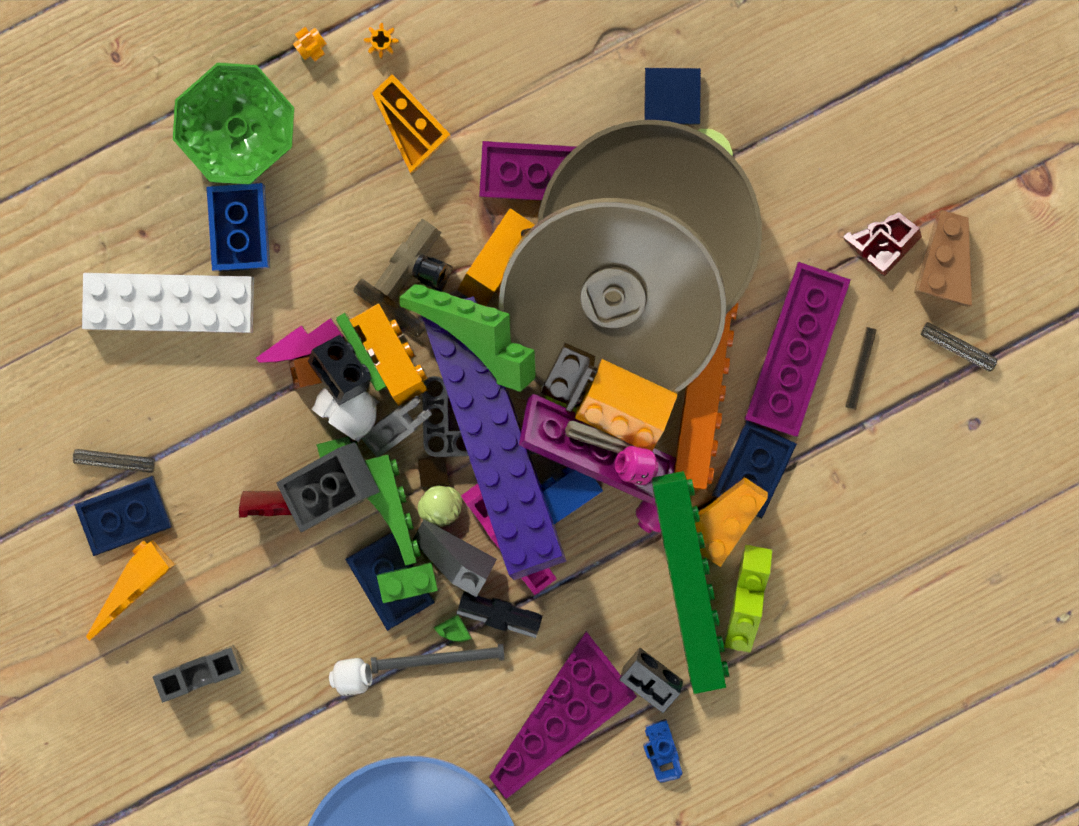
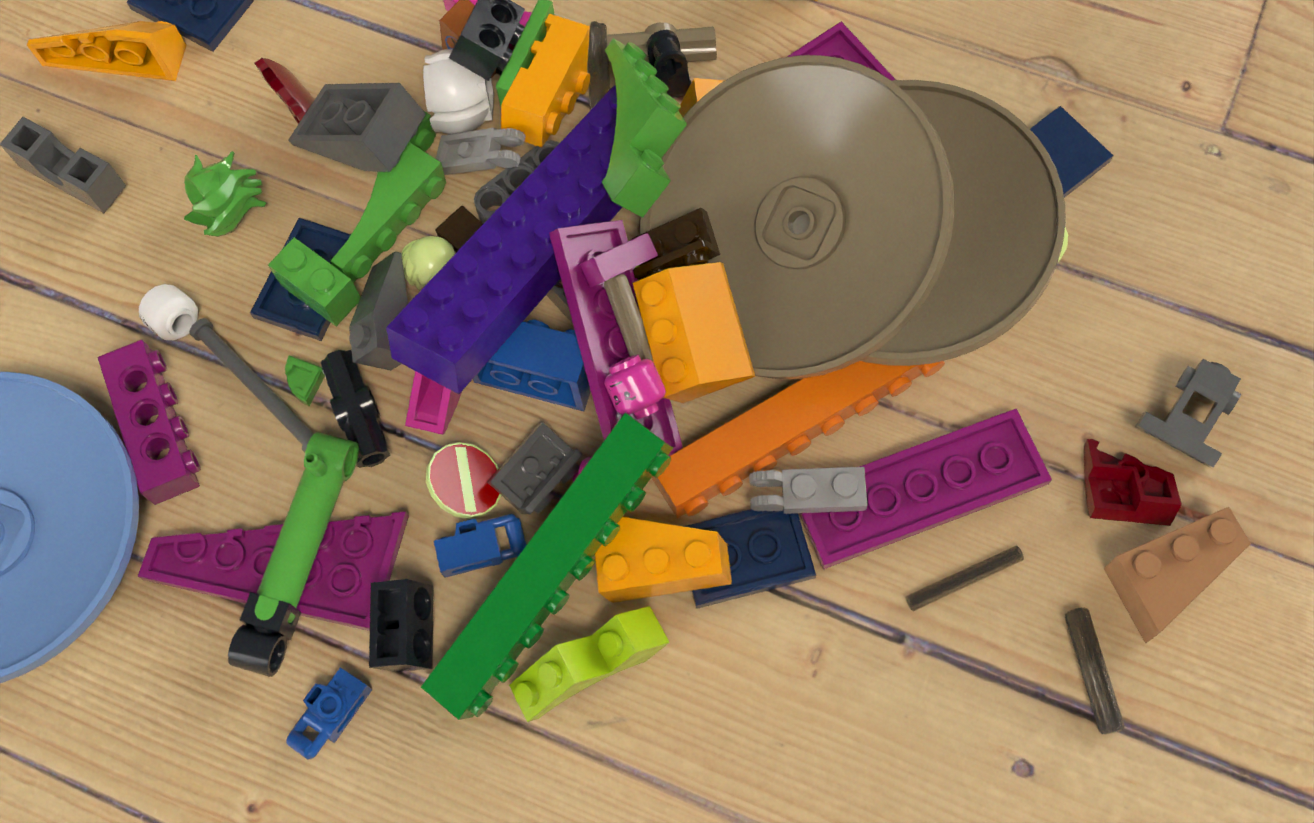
camera: 55 degrees right, 20 degrees down
(299, 596) = (220, 195): none -> bright green hair
(370, 729) = (123, 373): none -> magenta brick
(559, 417) = (618, 260): none -> piece
(567, 706) = (273, 612): none -> bright green piece
(594, 587) = (459, 480): none -> piece
(620, 544) = (535, 470): none -> dark grey bracket
(639, 606) = (478, 545): none -> blue piece
(755, 409) = (811, 490): none -> light grey hinge
(873, 155) = (1185, 432): none -> dark grey tile

